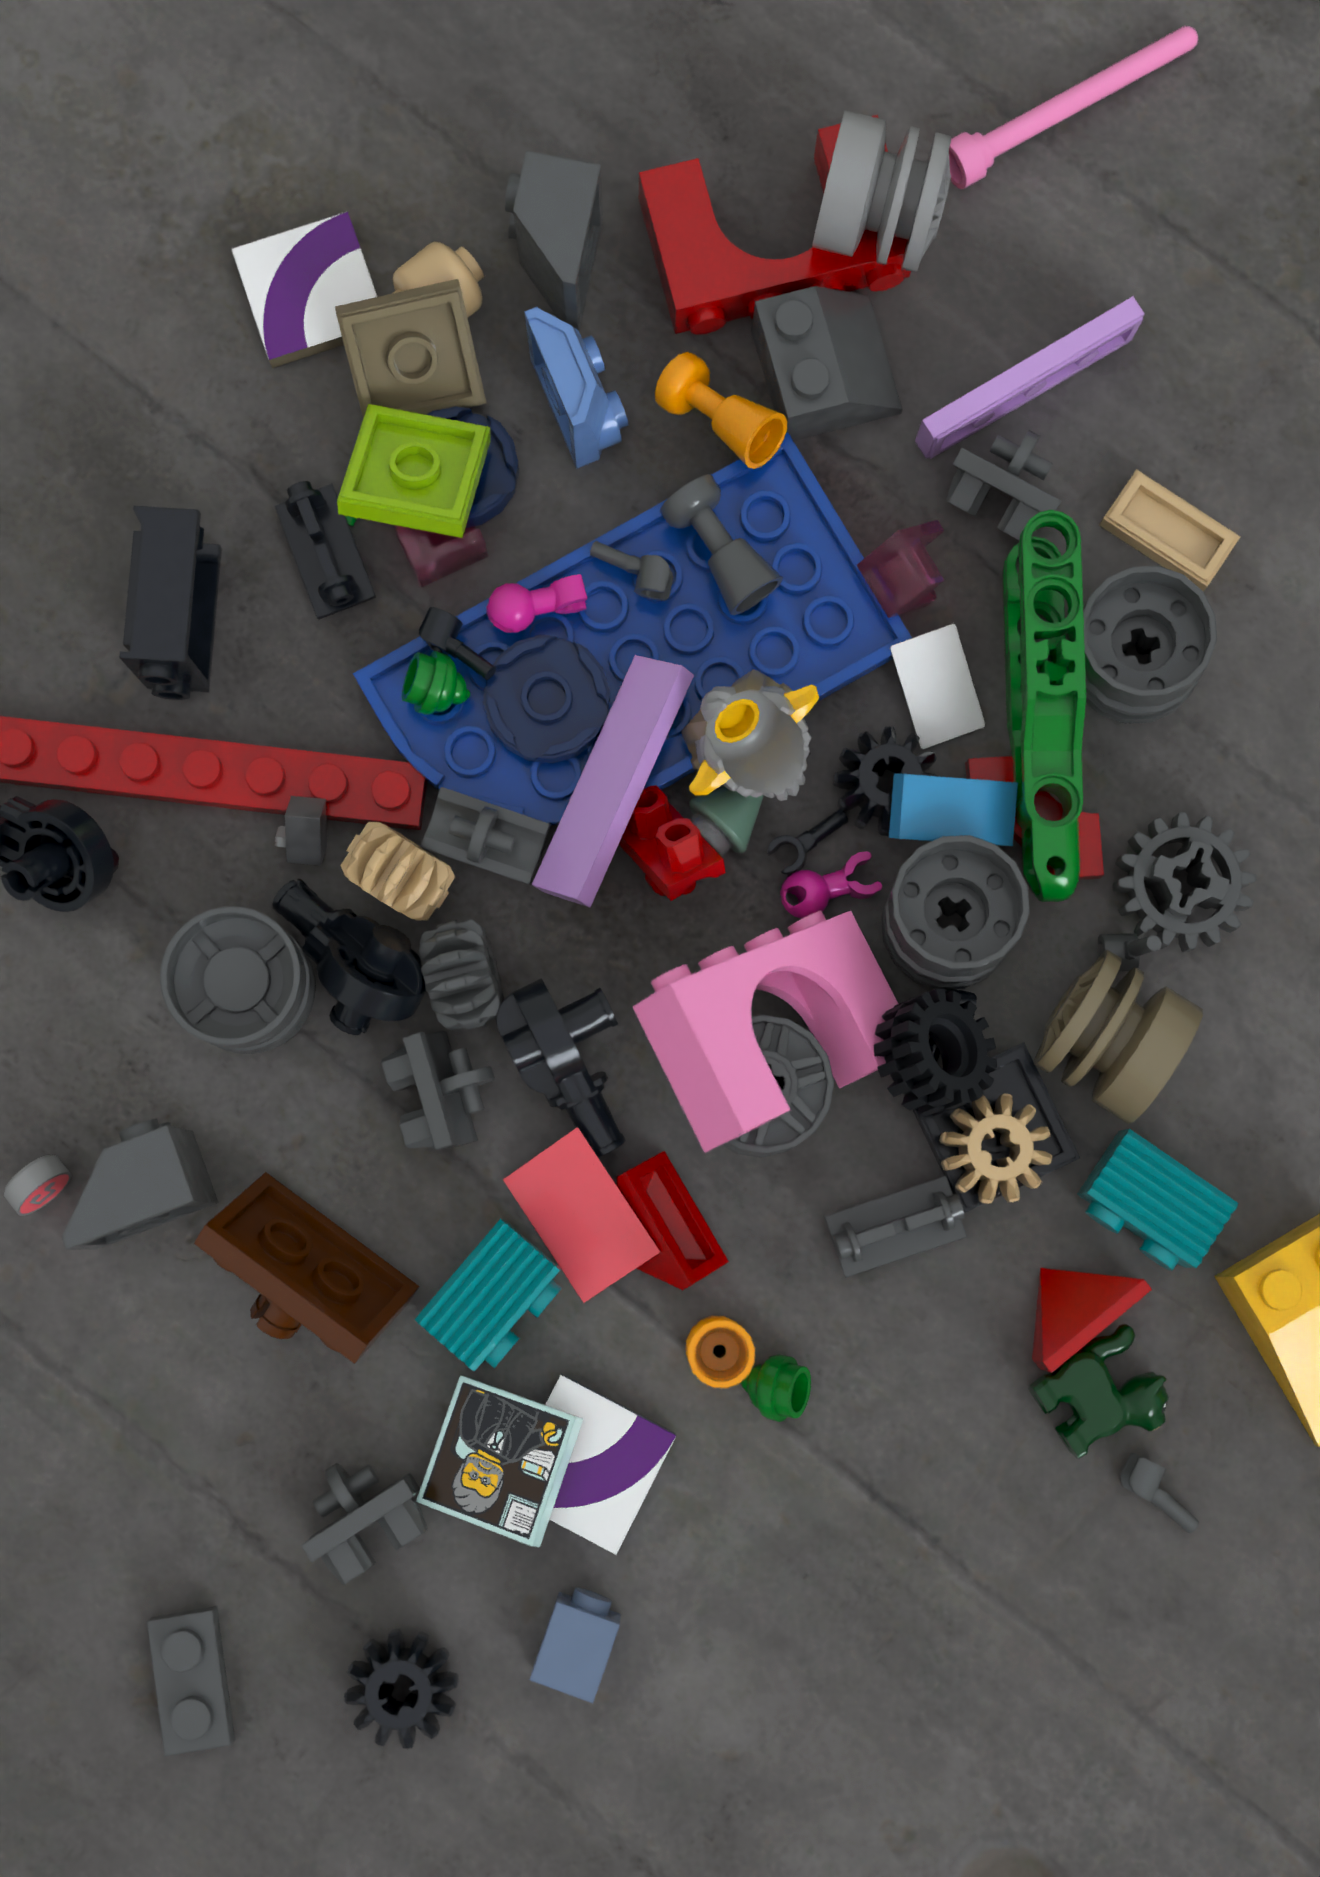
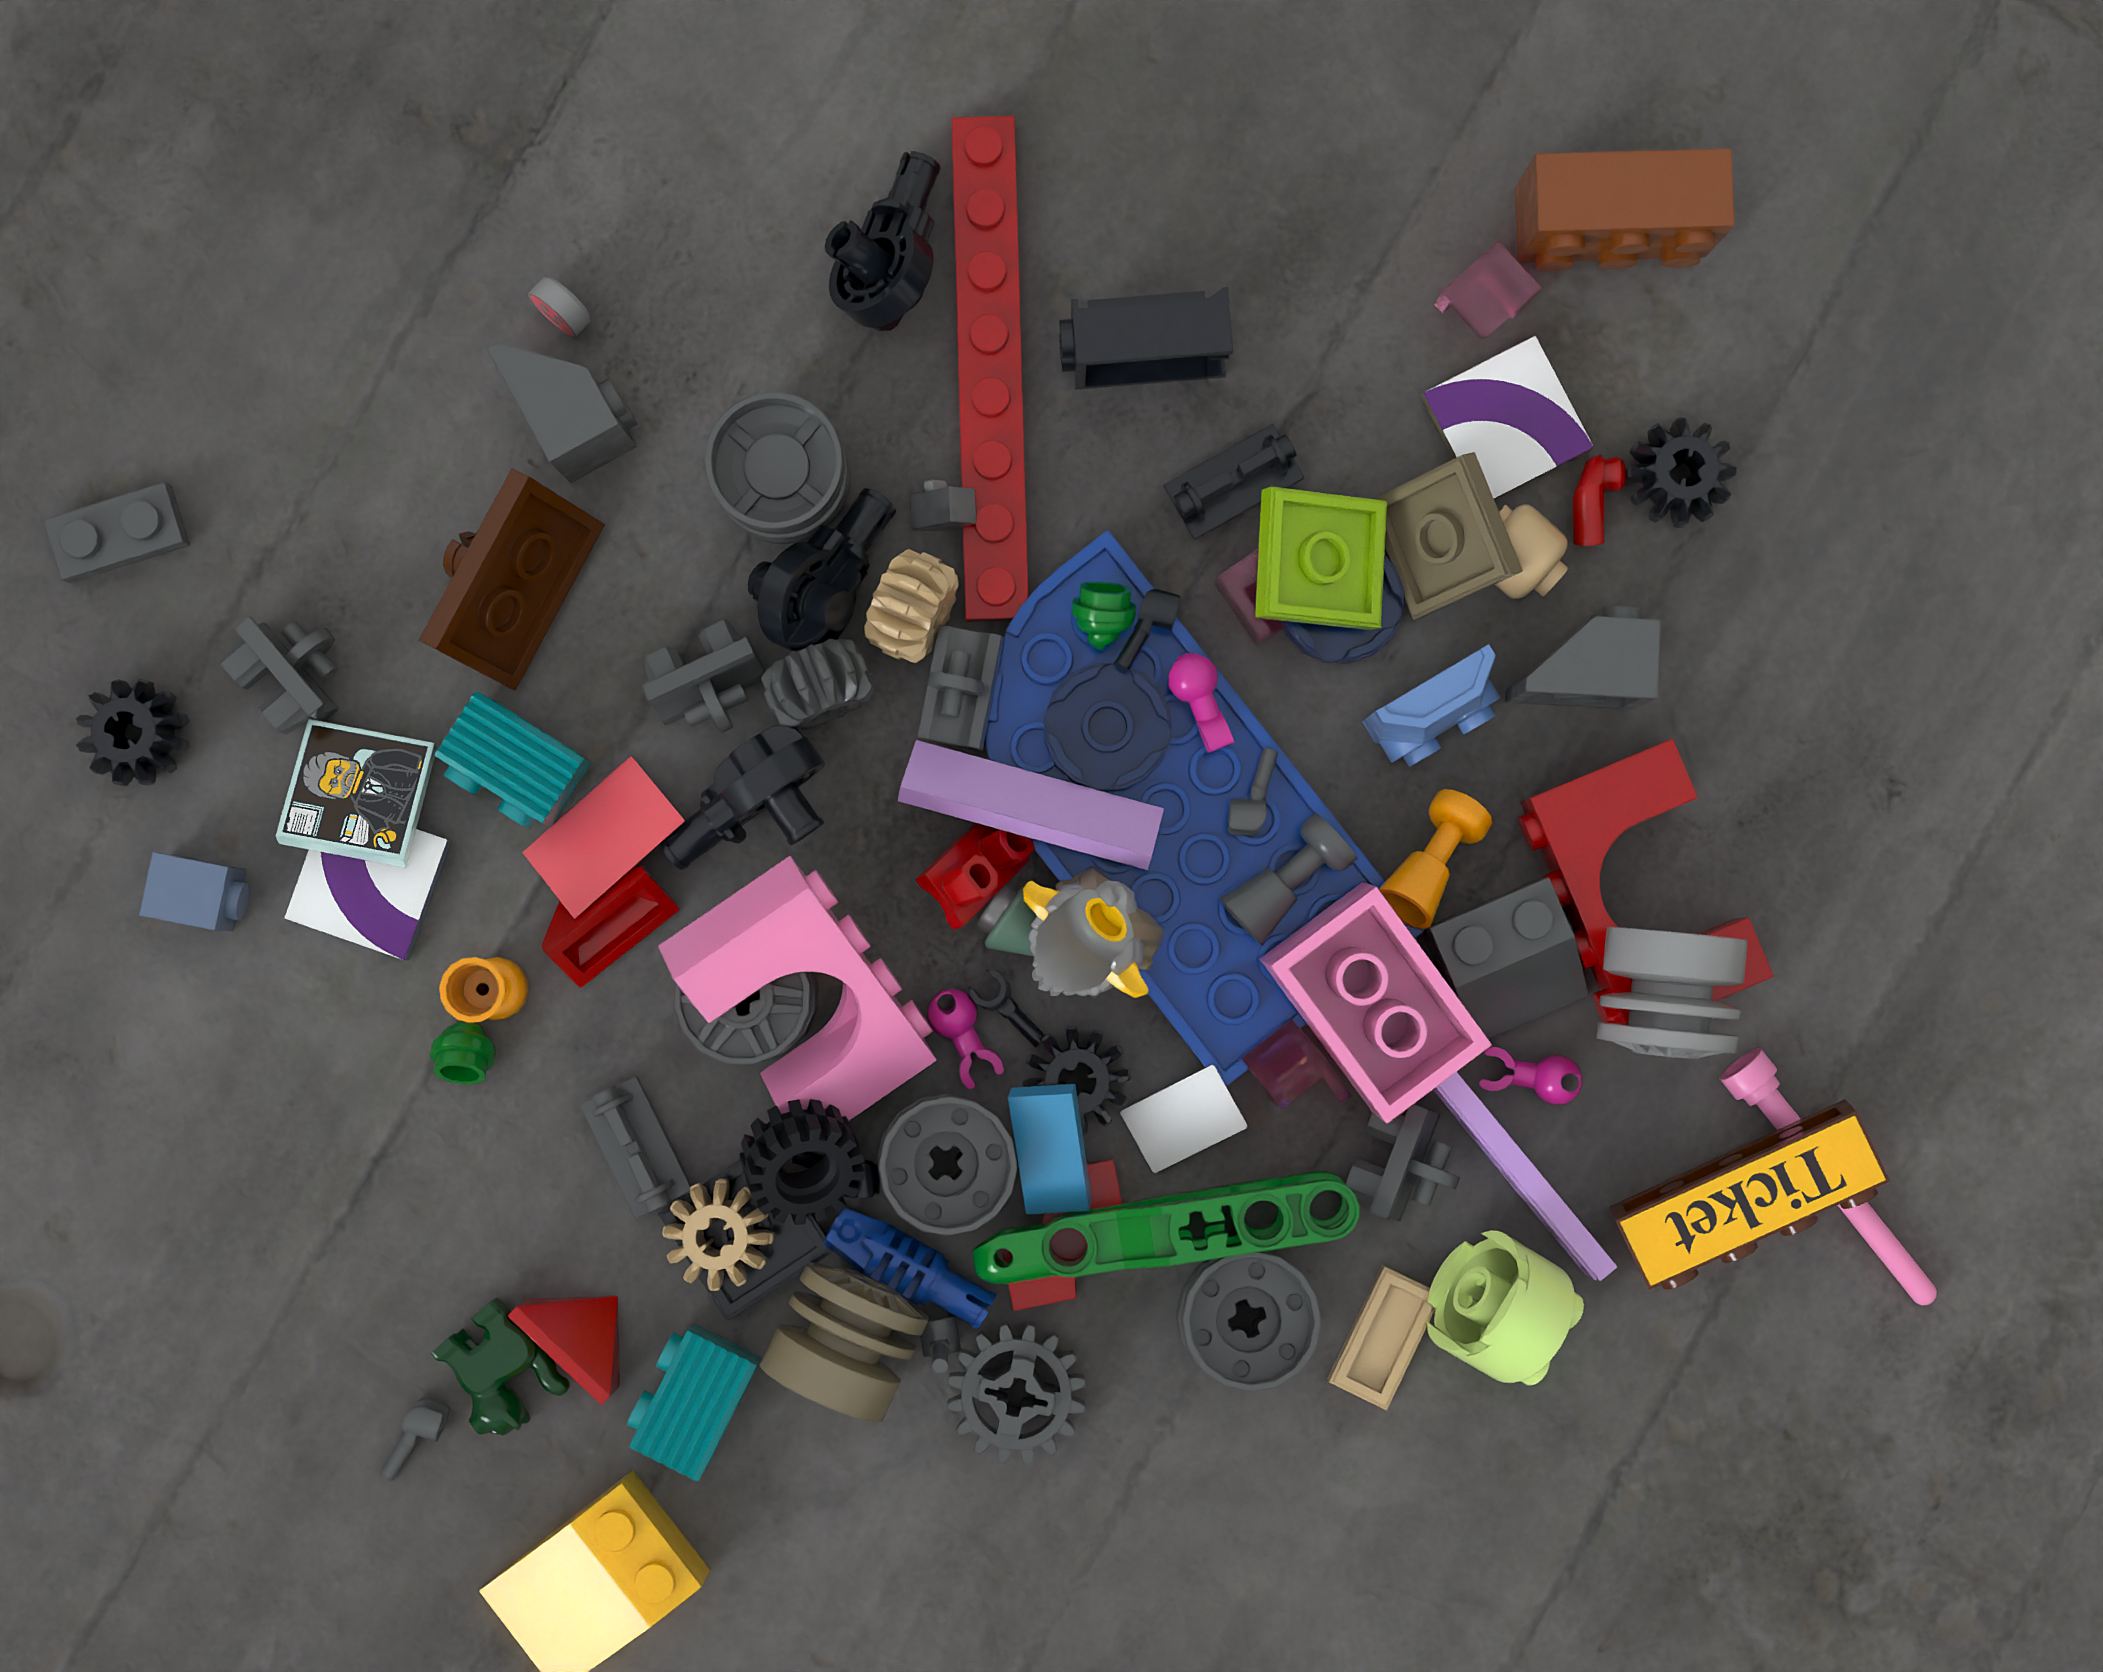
camera: 85 degrees right, 5 degrees up
(122, 140) = (1623, 207): none -> dark orange brick
(180, 279) = (1489, 291): none -> clear pink panel
(382, 113) = (1689, 494): none -> black gear
(396, 222) = (1589, 499): none -> red arm
(852, 475) = (1375, 1001): none -> bright pink brick
(942, 343) = (1542, 1077): none -> dark pink arm
(1047, 972) = (906, 1266): none -> blue hinge
(1079, 169) = (1750, 1195): none -> brick
(1159, 406) = (1502, 1308): none -> yellowish green brick

